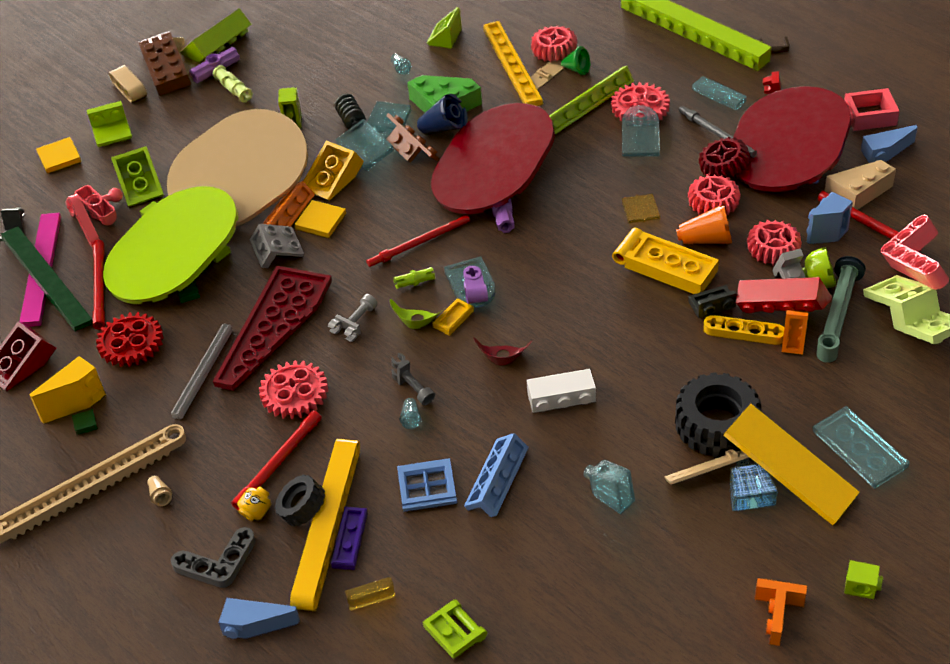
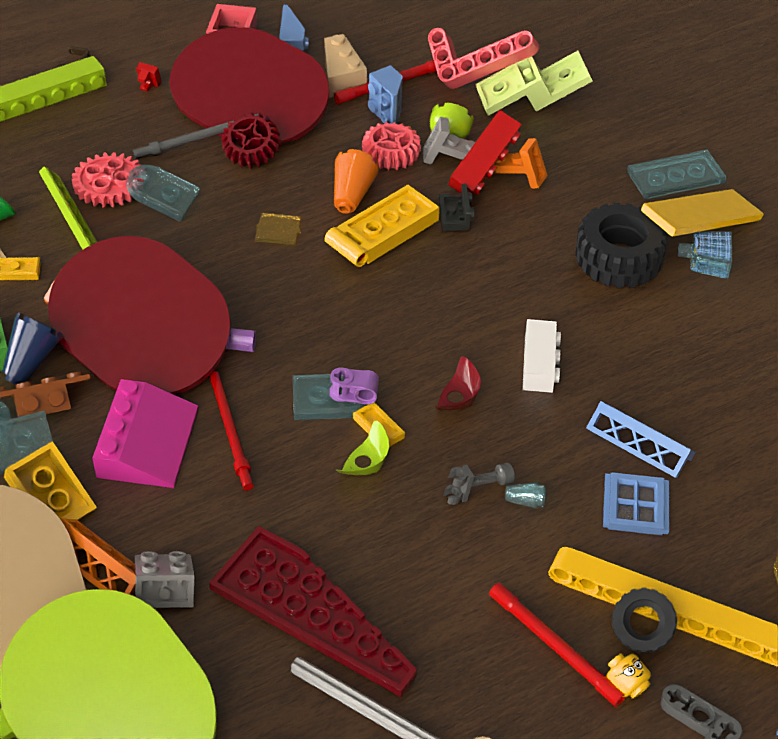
camera: 80 degrees left, 0 degrees up
(293, 389) = (473, 602): coral gear -> none
(320, 218) = (130, 523): yellow tile -> none
(349, 538) = (698, 586): dark purple tile -> none
(367, 303) = (323, 499): light grey bar -> none
(394, 199) = (144, 435): none -> dark pink slope
(414, 278) = (299, 445): lime pin -> none
(611, 484) = (688, 344): clear light blue torso -> none
(713, 192) = (298, 166): coral gear -> none
(719, 93) = (127, 120): clear light blue tile -> none
(730, 457) = (680, 273): tan piece -> none
(744, 329) = (497, 201): yellow beam -> none
(848, 270) = (551, 149): sand green piece -> none

